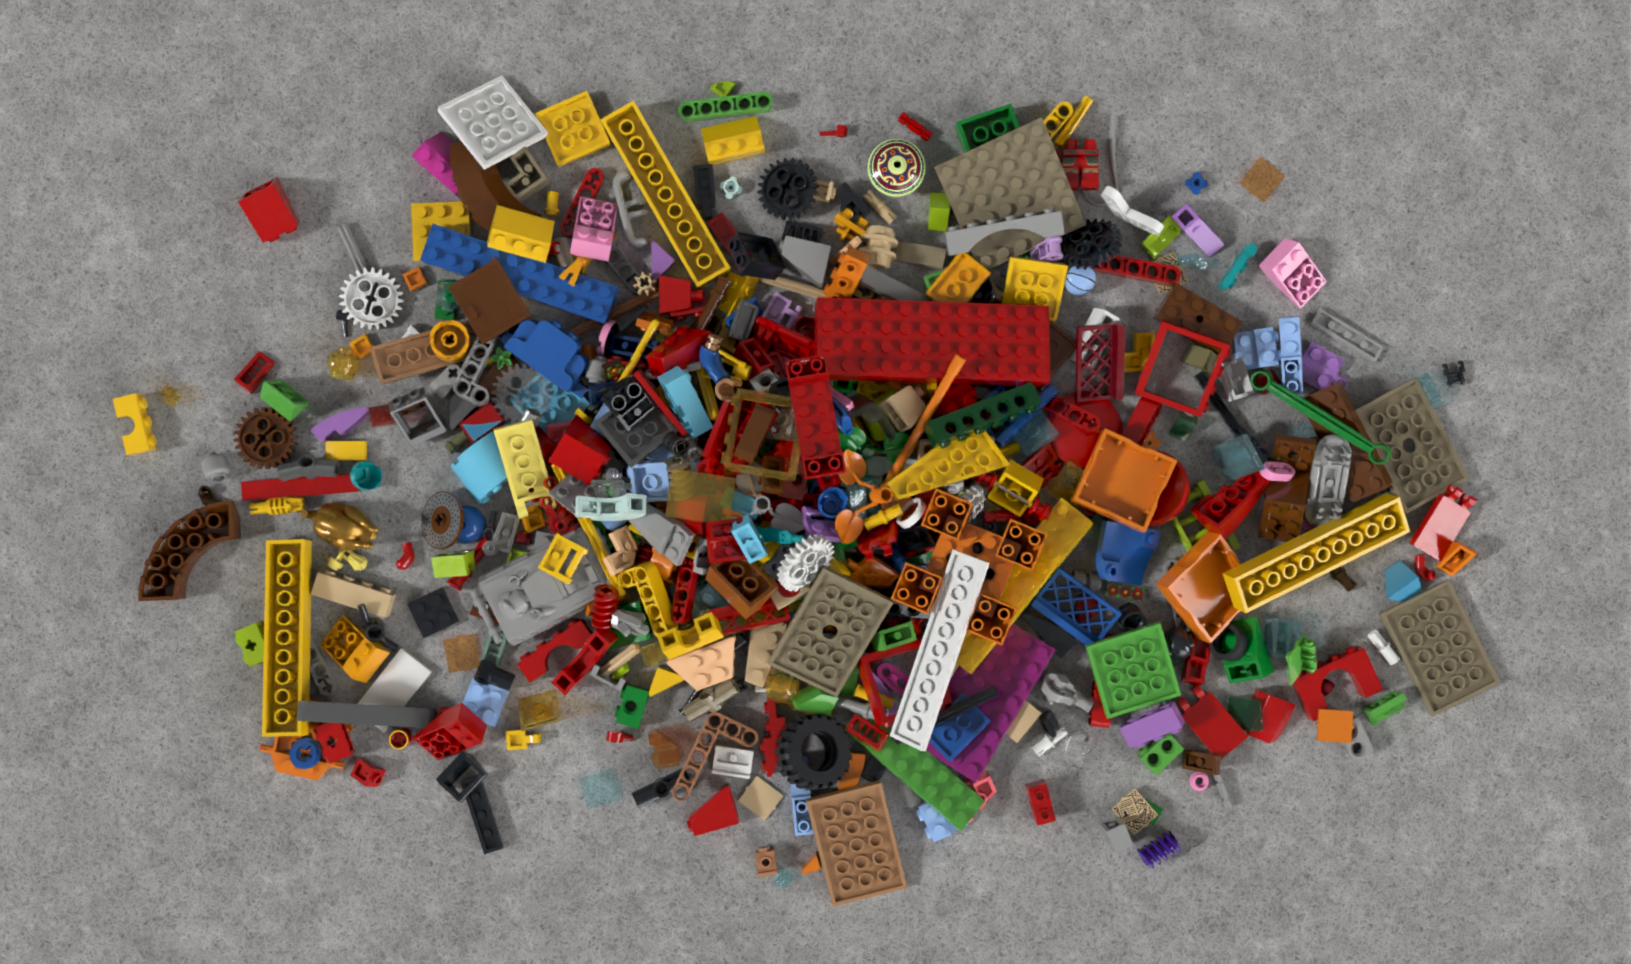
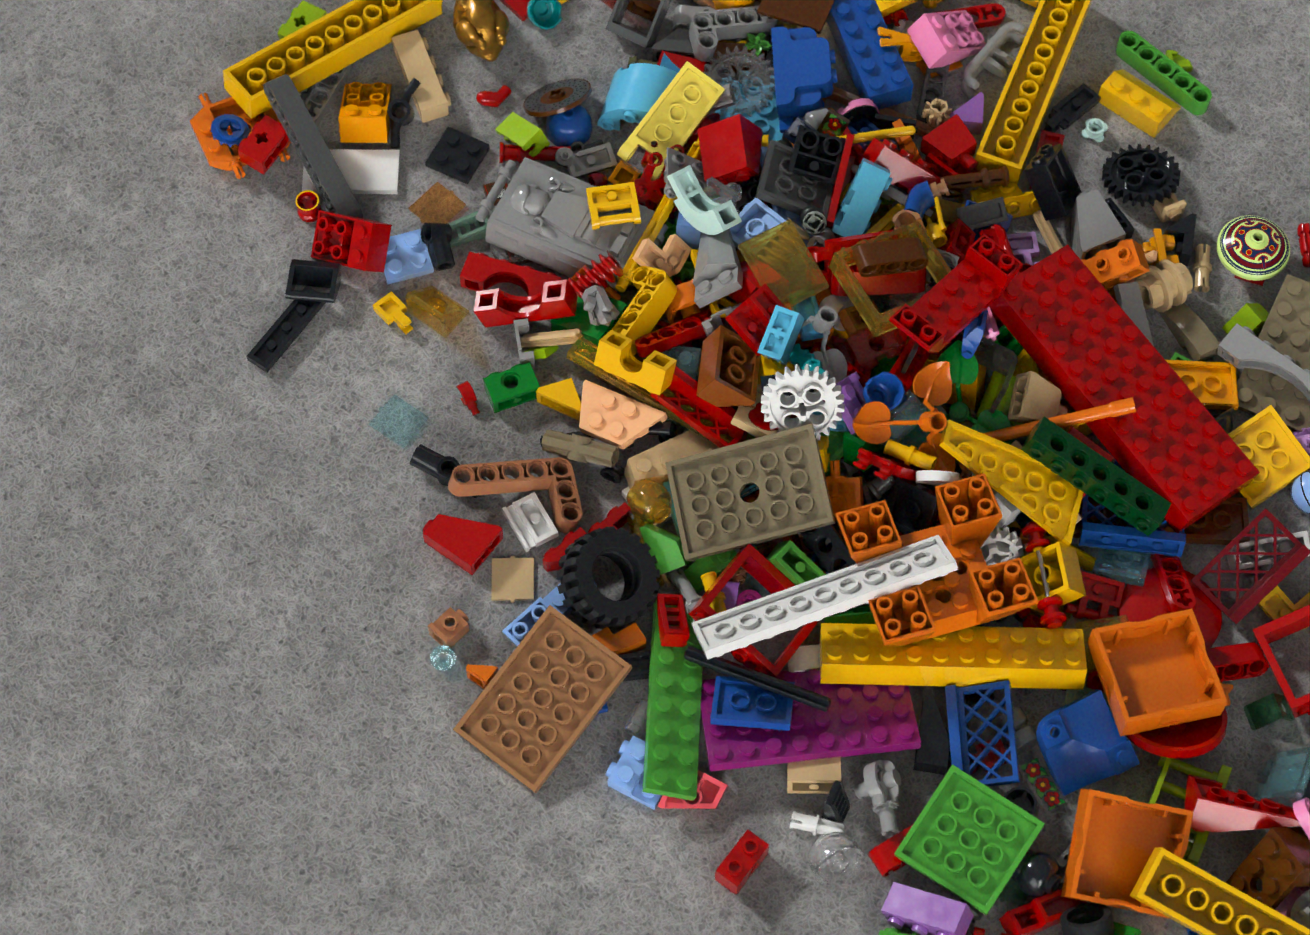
camera: 50 degrees right, 25 degrees down
(357, 561) = (454, 59): light yellow piece -> none
(367, 773) = (249, 203): red bracket -> none
(666, 750) = (489, 445): clear orange slope -> none
(840, 132) = (1237, 185): red hand -> none

